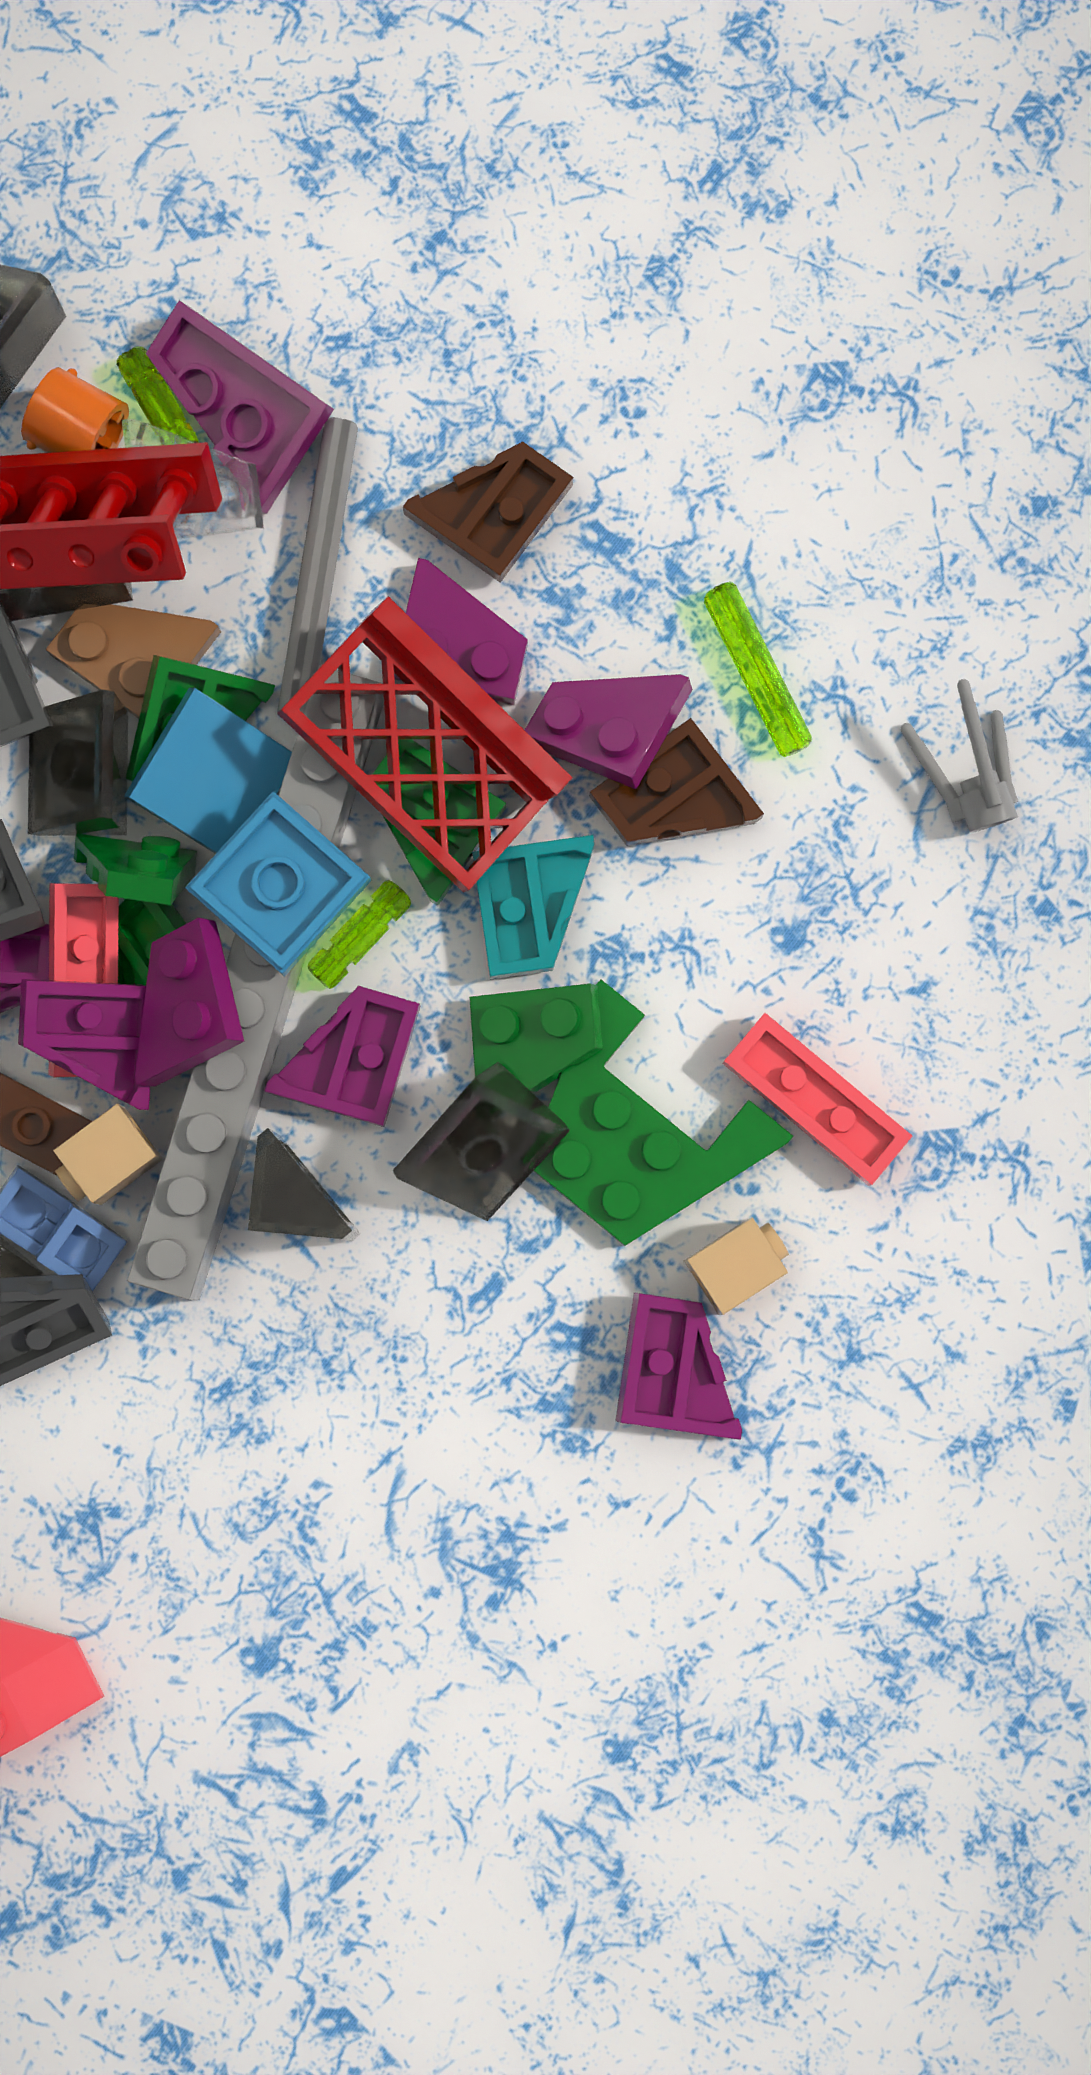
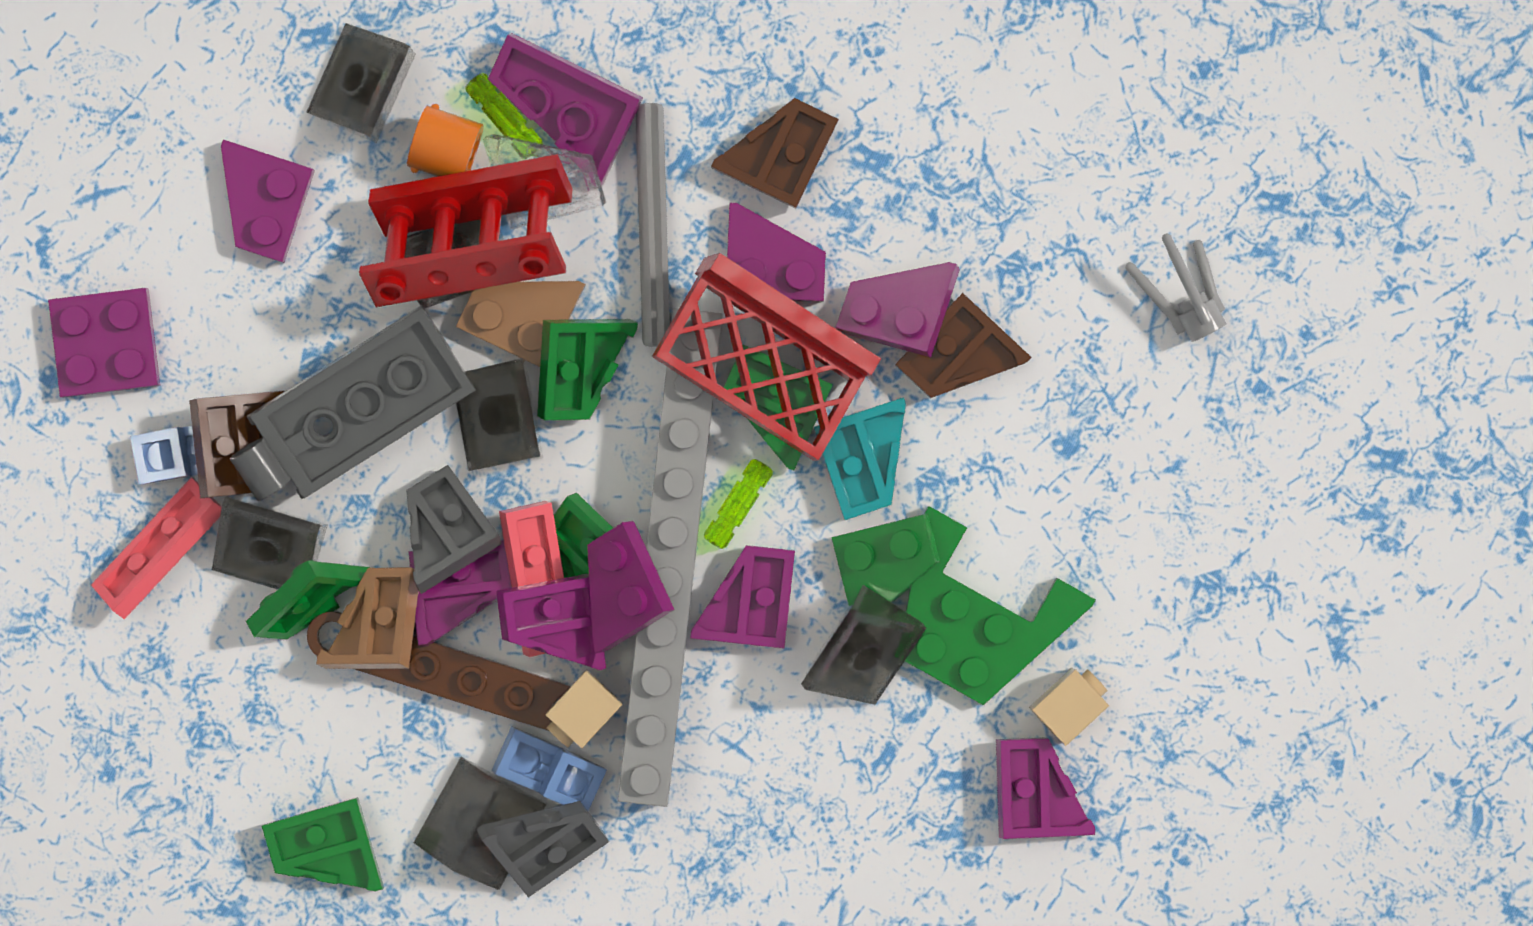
camera: 10 degrees left, 5 degrees up
(137, 870) = (562, 487): green wing -> none
(208, 771) = (604, 404): dark azure tile -> none
(278, 883) = (676, 485): dark azure tile -> none
(289, 1197) = (730, 719): clear smoke slope -> none
(757, 669) = (1007, 242): clear neon green axle -> none
(817, 1099) = (1109, 568): coral plate -> none

